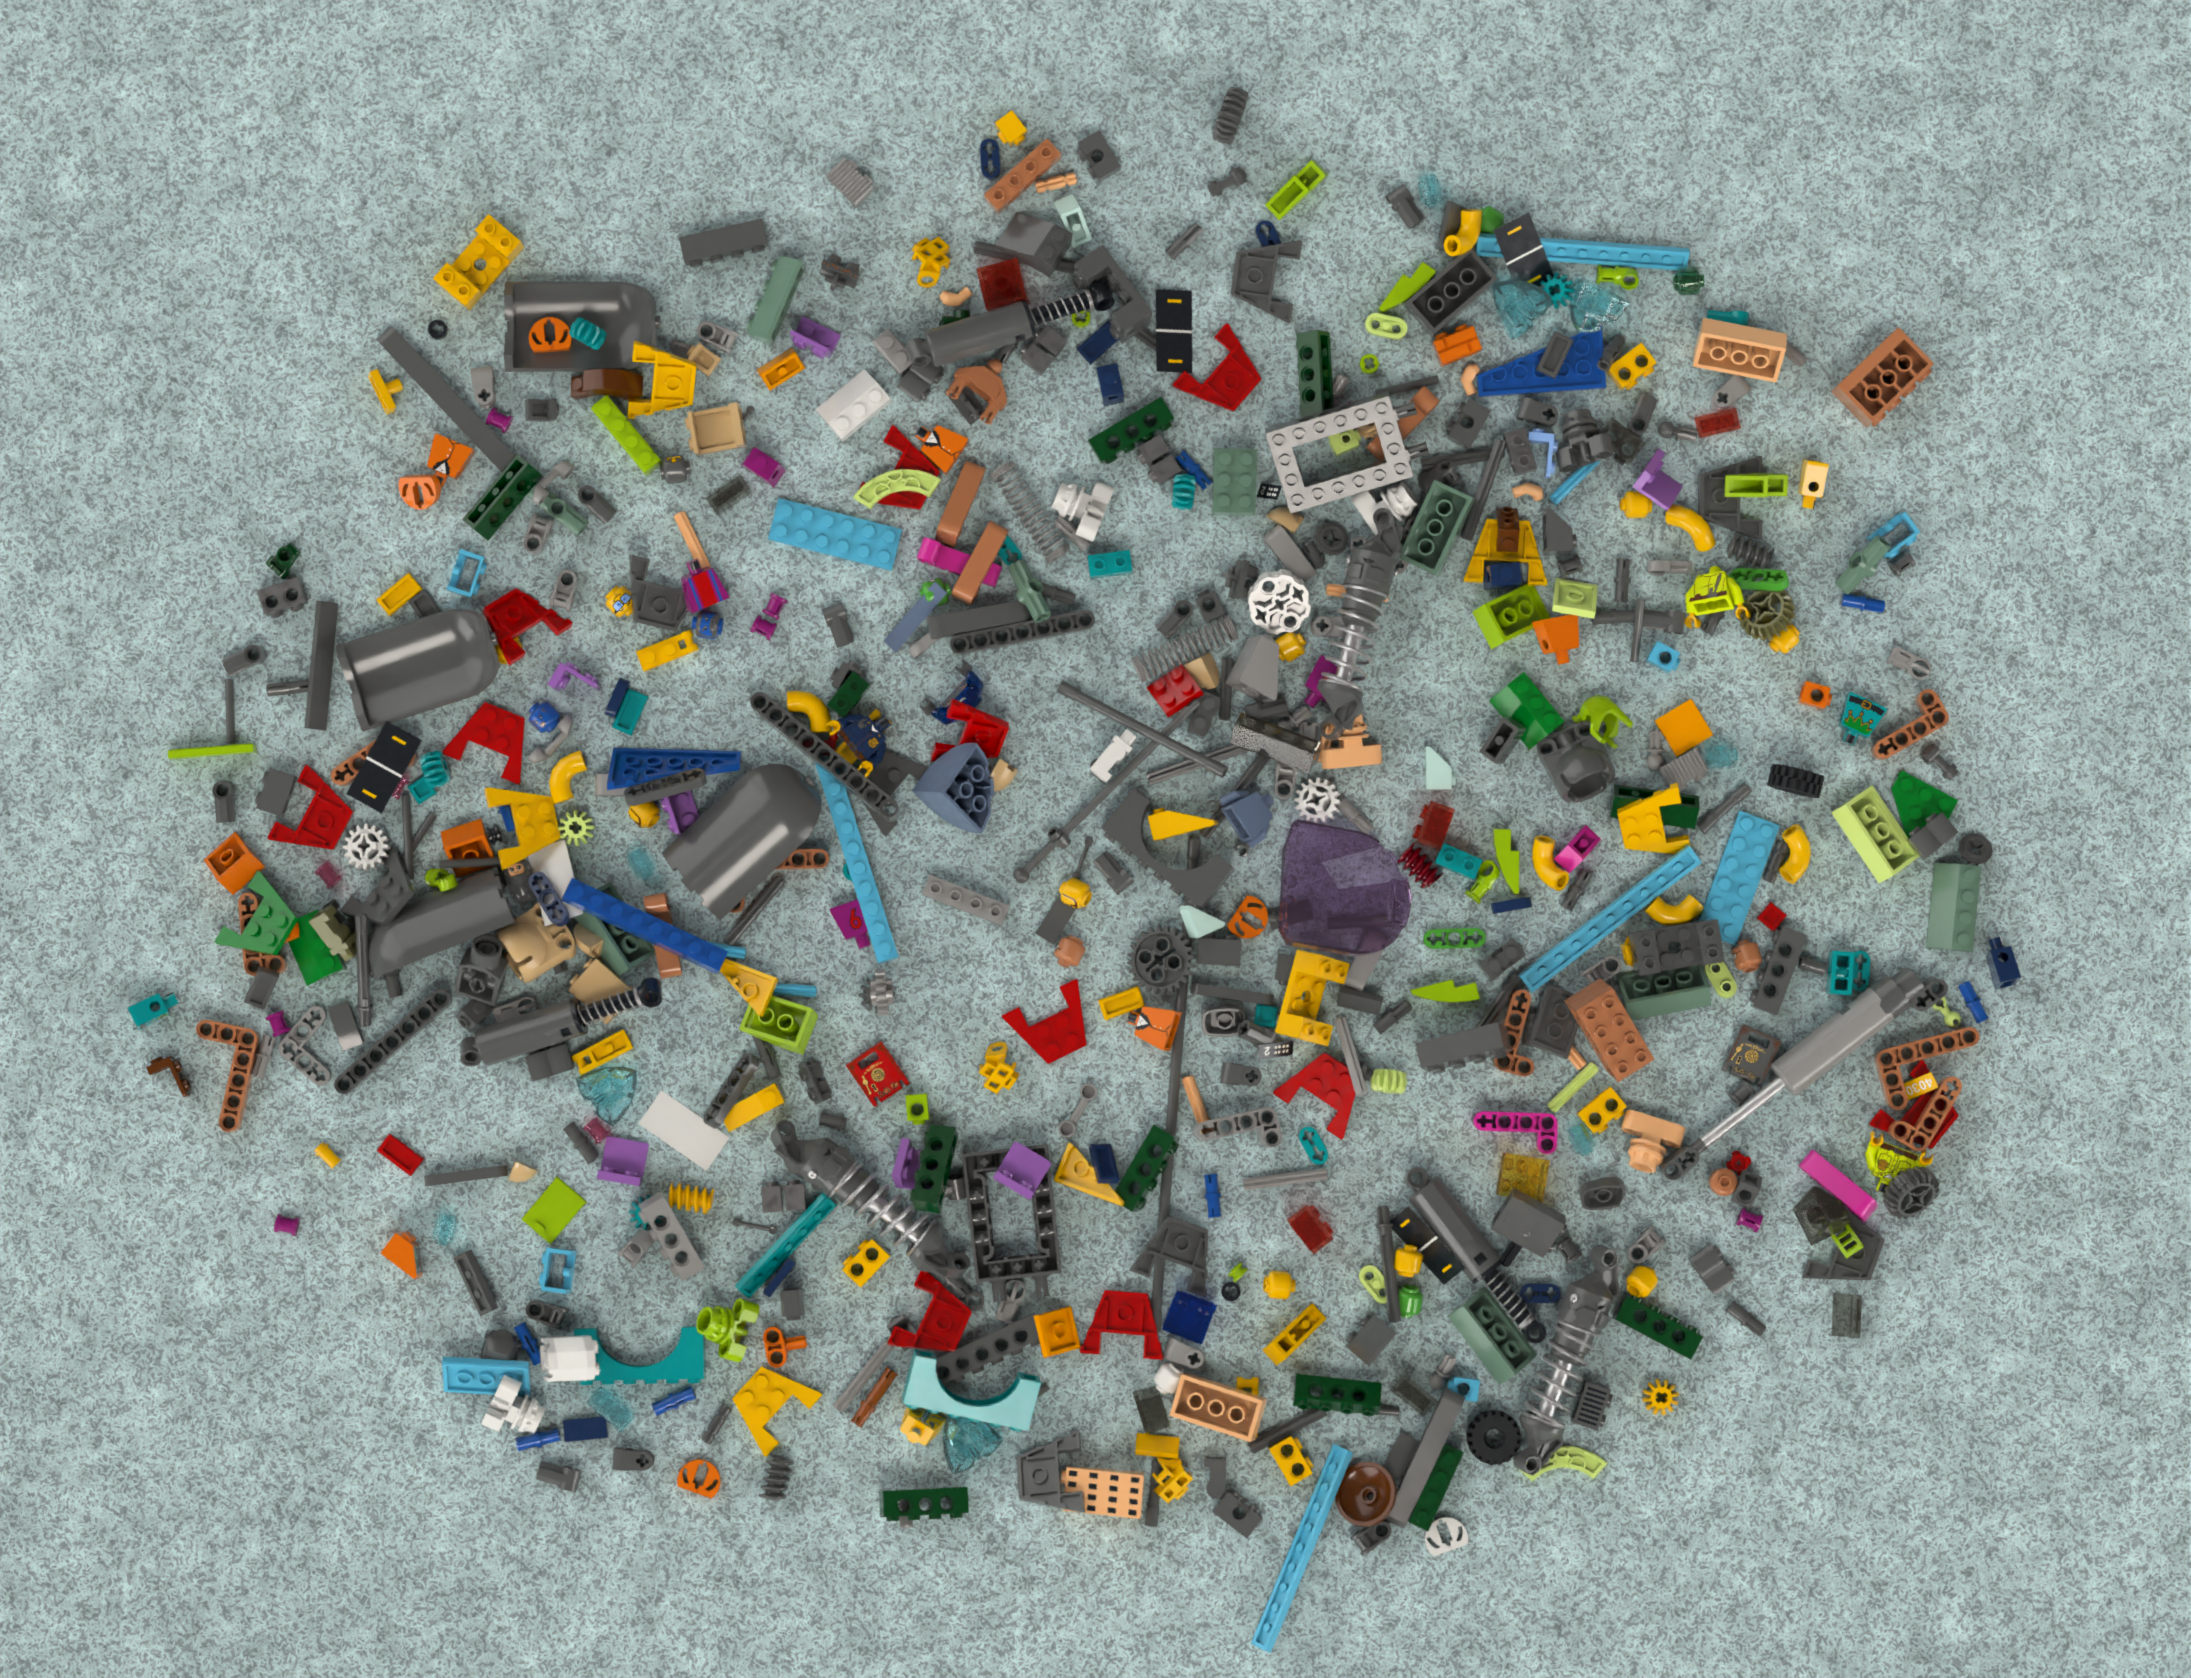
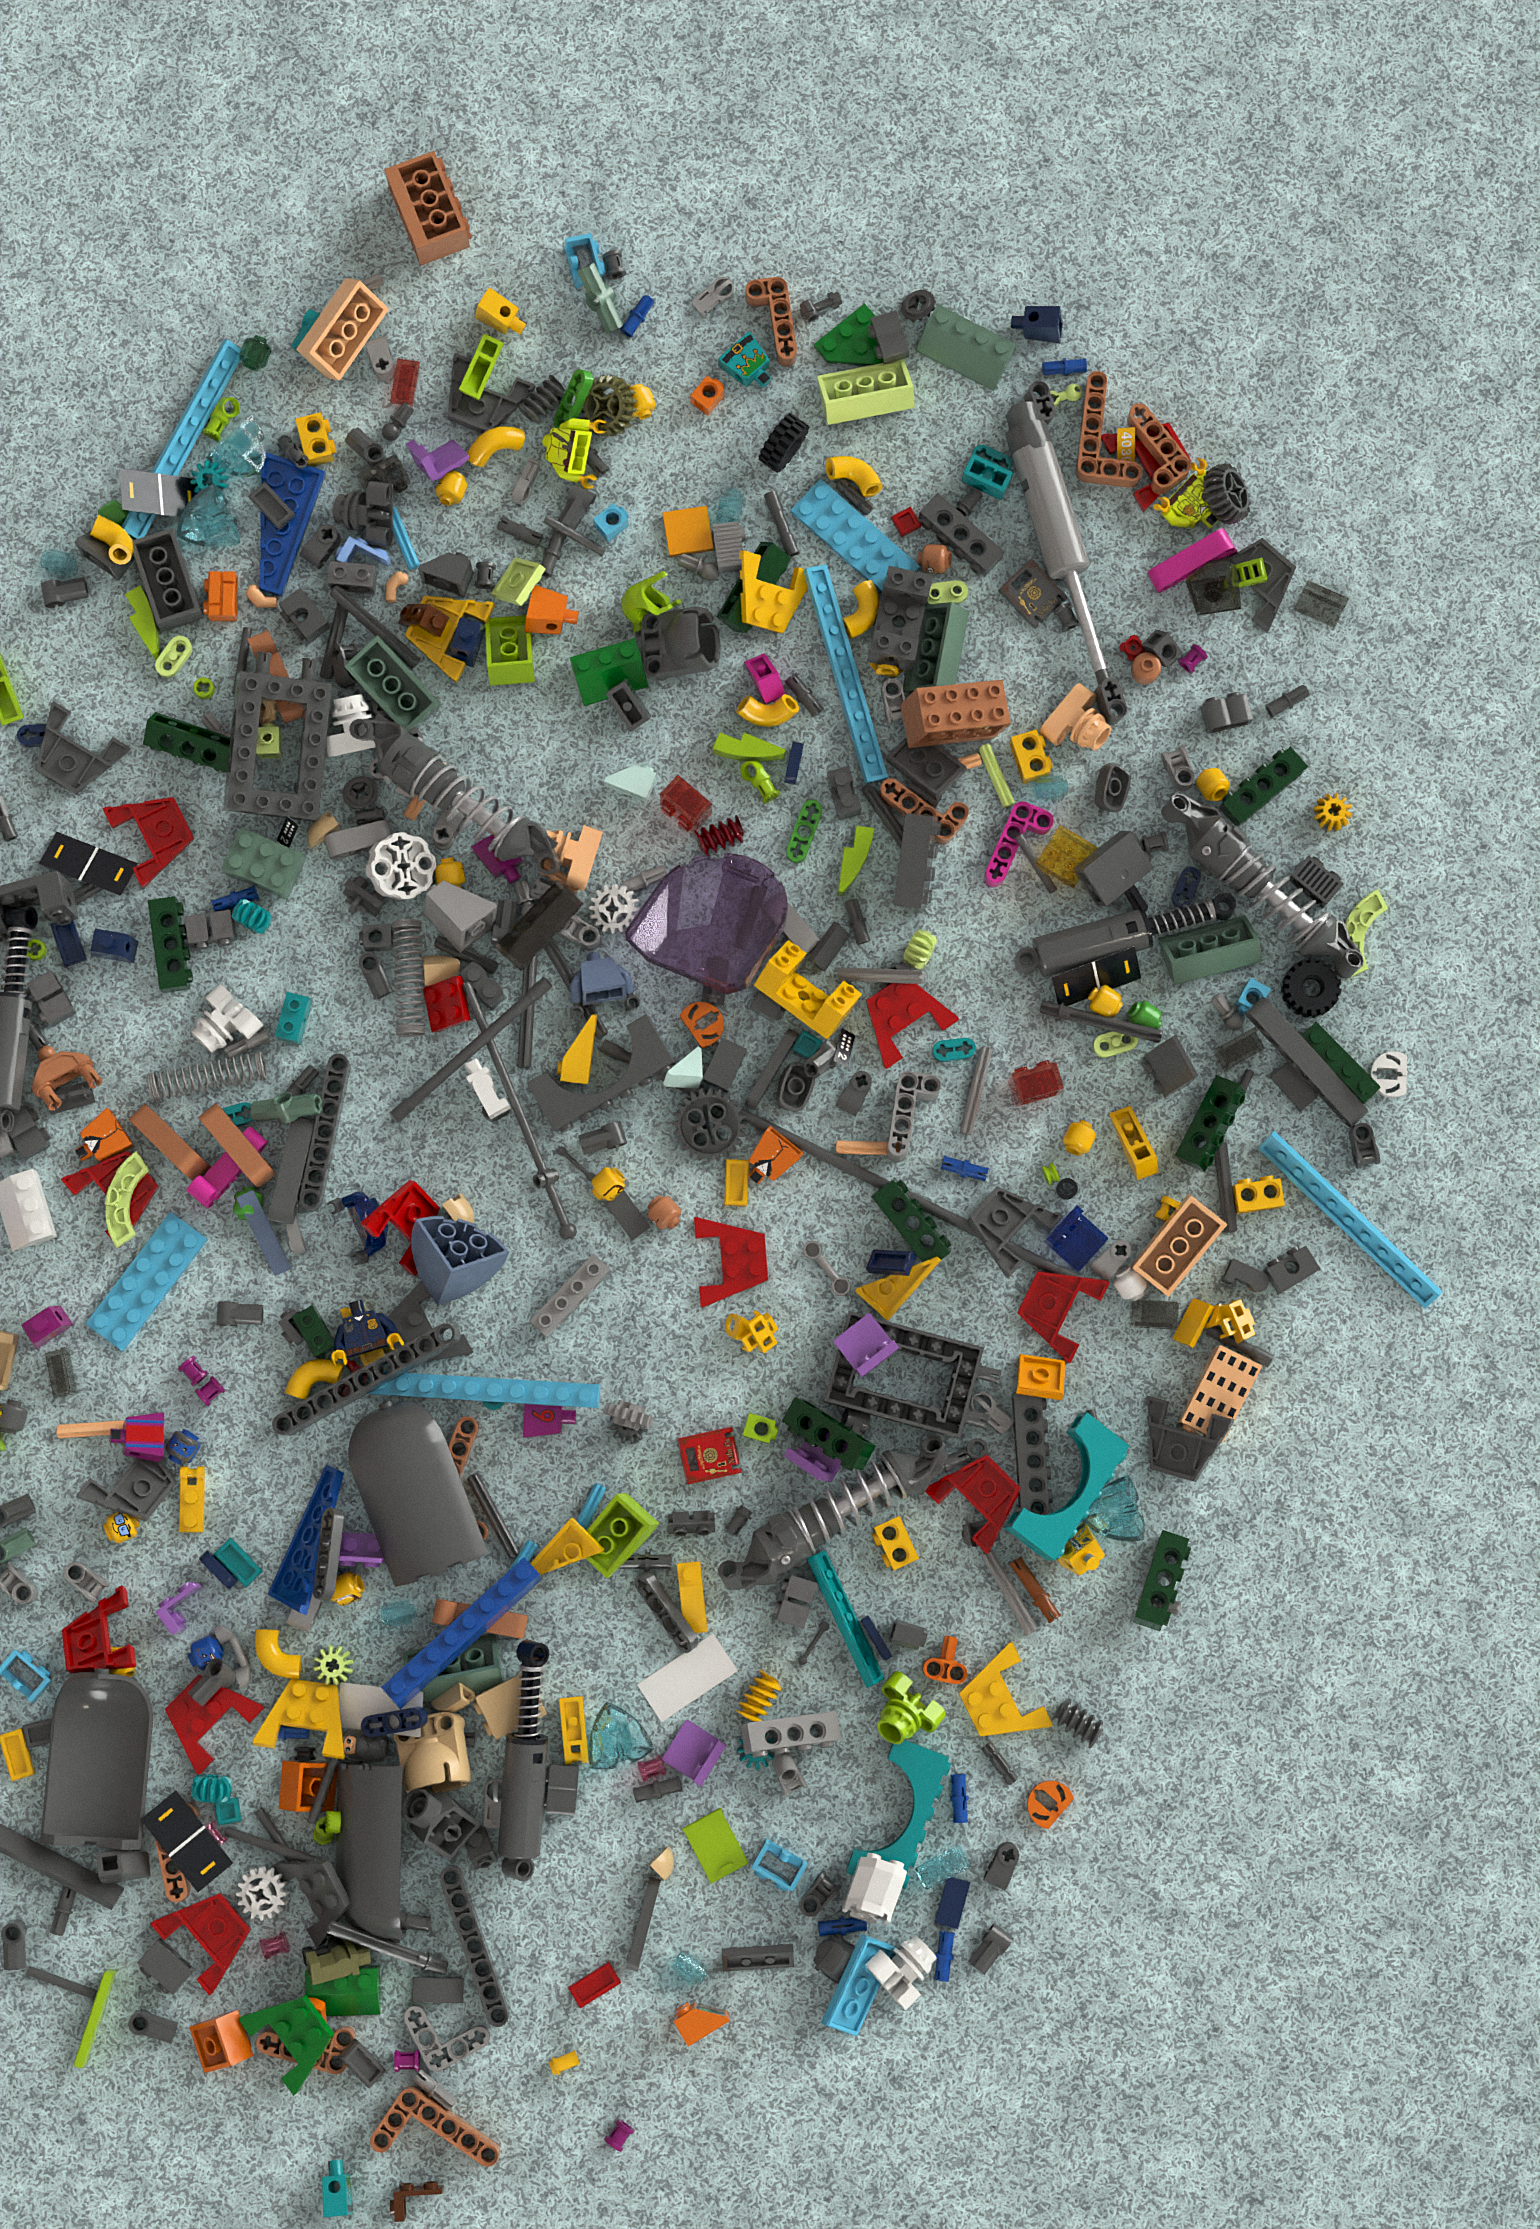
camera: 75 degrees left, 5 degrees down
(343, 722) = (122, 1866): none -> dark grey slope
(528, 734) = (216, 1675): none -> dark grey piece
(1354, 1493) = (1307, 1140): reddish brown dish -> none
(1458, 861) = (731, 796): teal brick -> none
(1508, 1149) = (1031, 856): none -> dark grey bar

